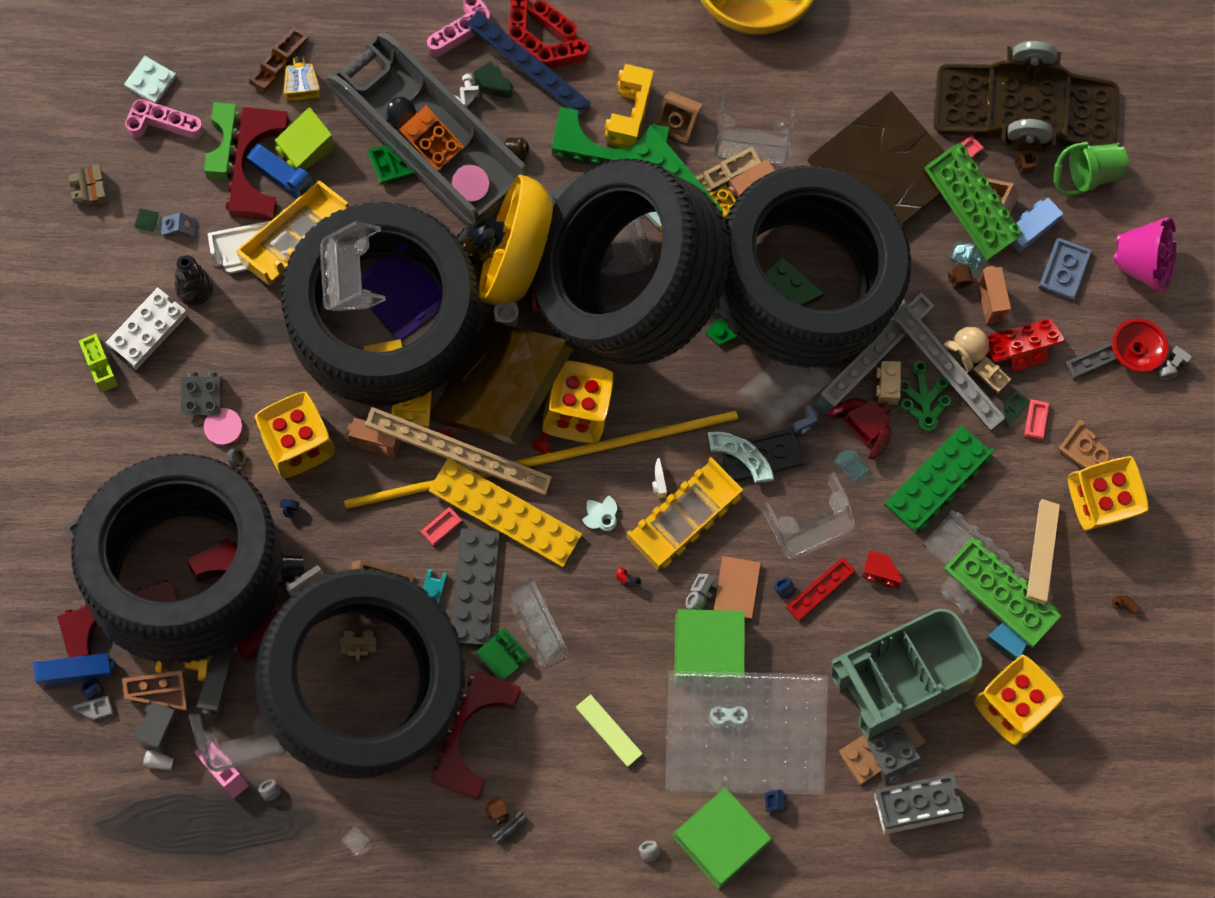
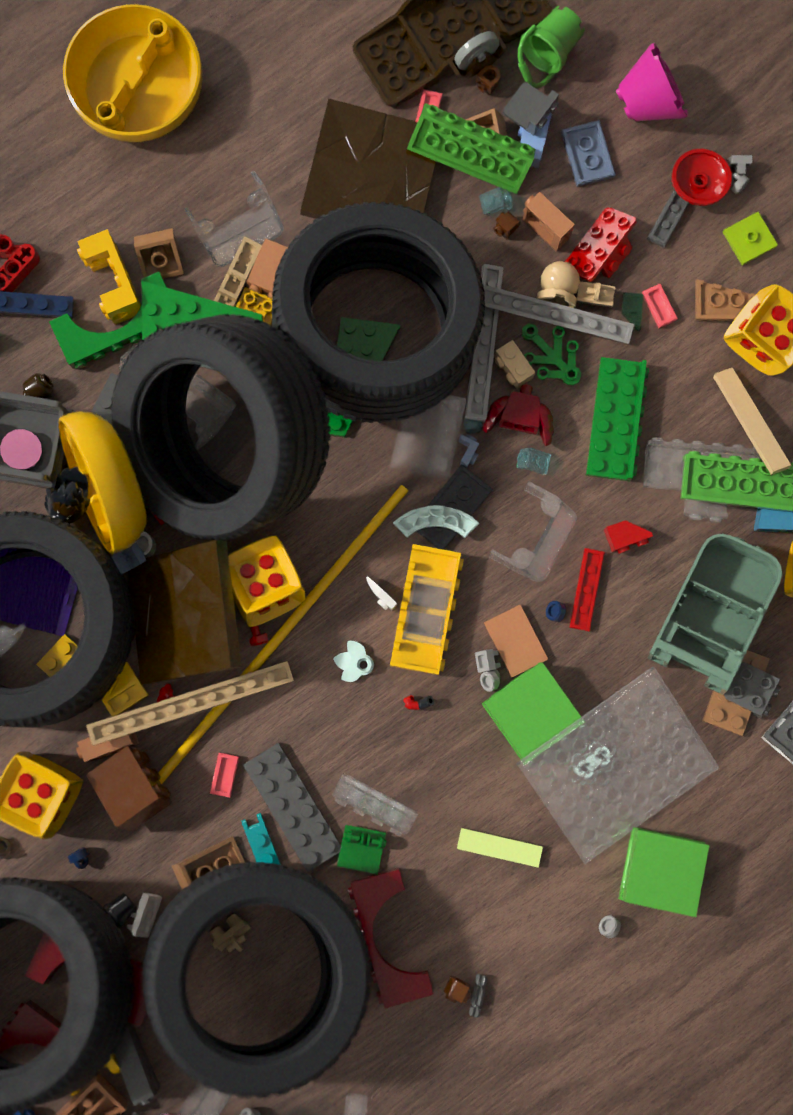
camera: 30 degrees left, 10 degrees up
(366, 481) = (129, 788): none -> reddish brown container
(491, 315) = (128, 558): none -> sand blue bracket
(505, 512) = (270, 723): yellow plate -> none
(775, 801) = (684, 805): dark blue tile -> none
(1042, 202) = (531, 107): none -> dark grey bracket
(1146, 419) = (750, 238): none -> lime plate

